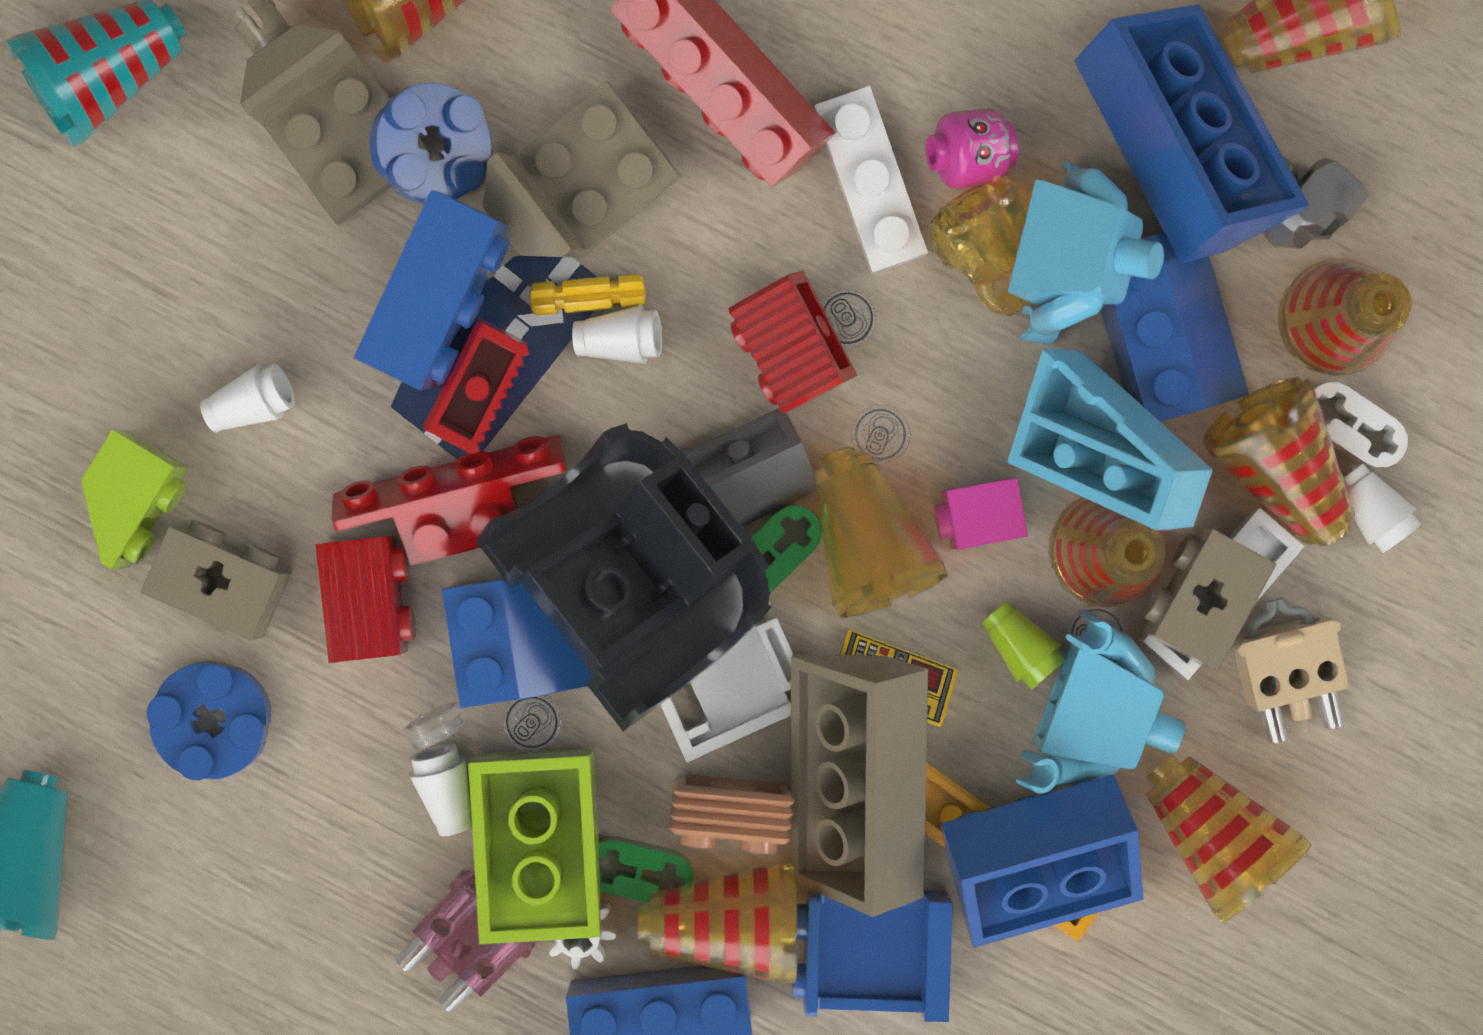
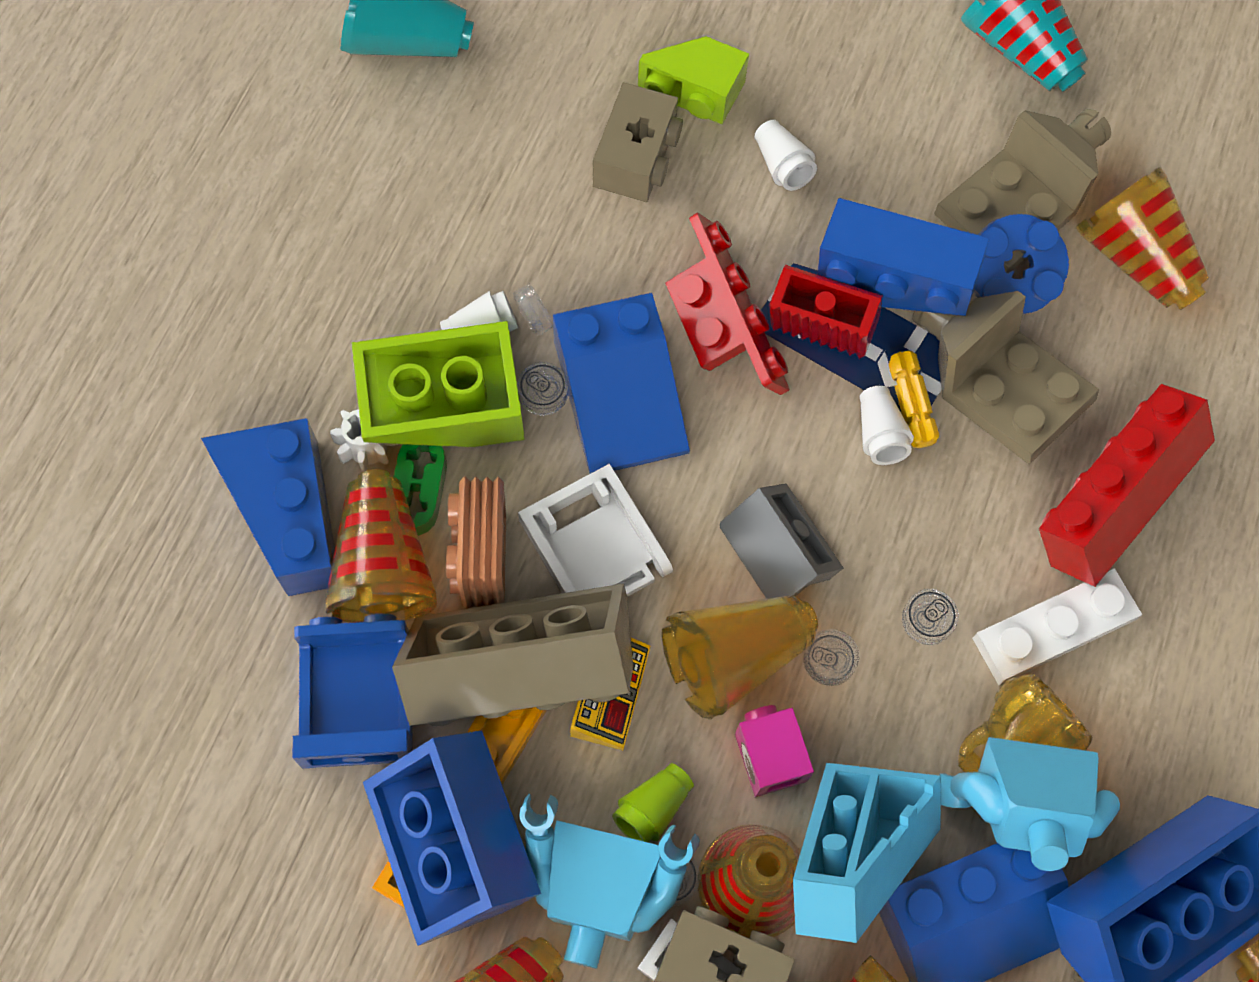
camera: 85 degrees right, 20 degrees down
(200, 753) = (522, 126): blue plate -> none
(364, 598) = (634, 247): red brick -> none
(460, 911) = (332, 357): clear pink piece -> none
(635, 569) = (684, 442): black piece -> none
(790, 342) = (903, 564): red brick -> none
(794, 553) = (718, 561): green beam -> none
(972, 147) = (1108, 707): dark pink head -> none

